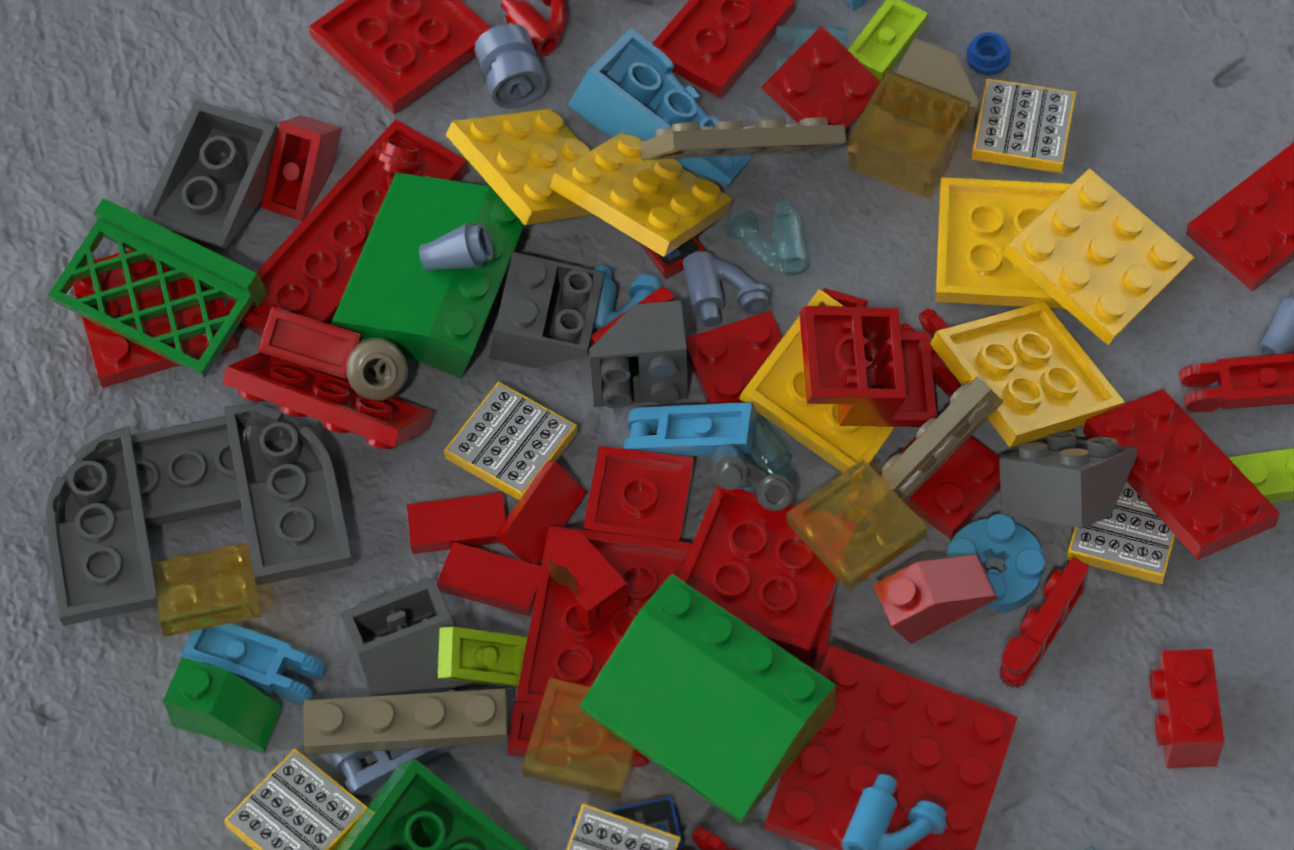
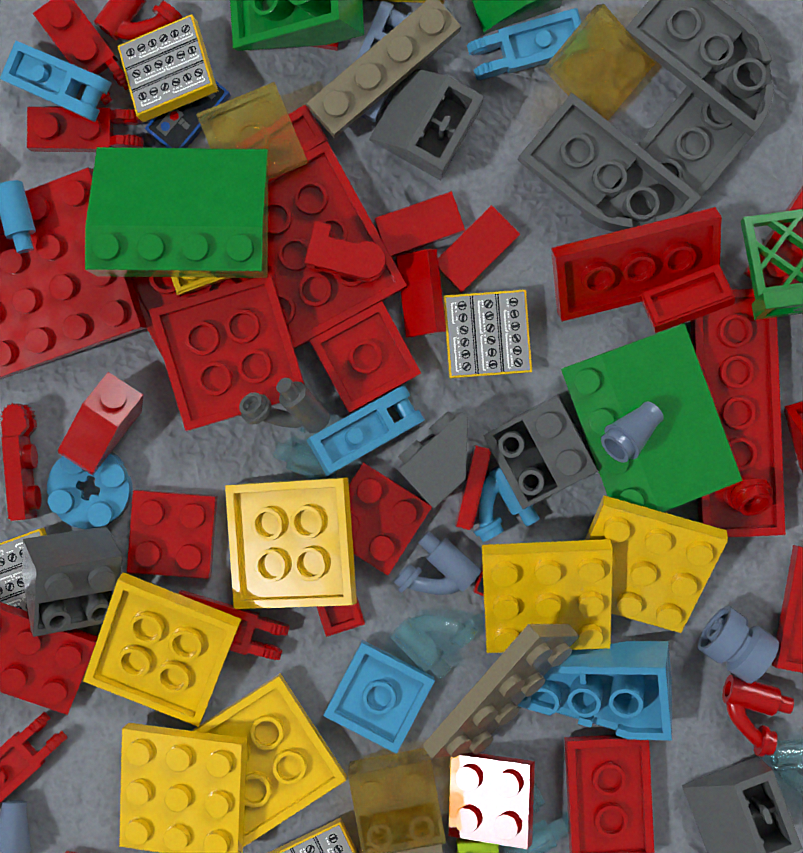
camera: 140 degrees right, 30 degrees up
(384, 384) = (622, 312): dark tan head -> none
(480, 656) = (368, 144): lime plate -> none
(856, 525) = (177, 423): clear yellow plate -> none
(858, 224) = (379, 696): none -> dark azure plate
(867, 366) = (260, 554): red bracket -> none
(940, 438) = (173, 533): dark tan plate -> none

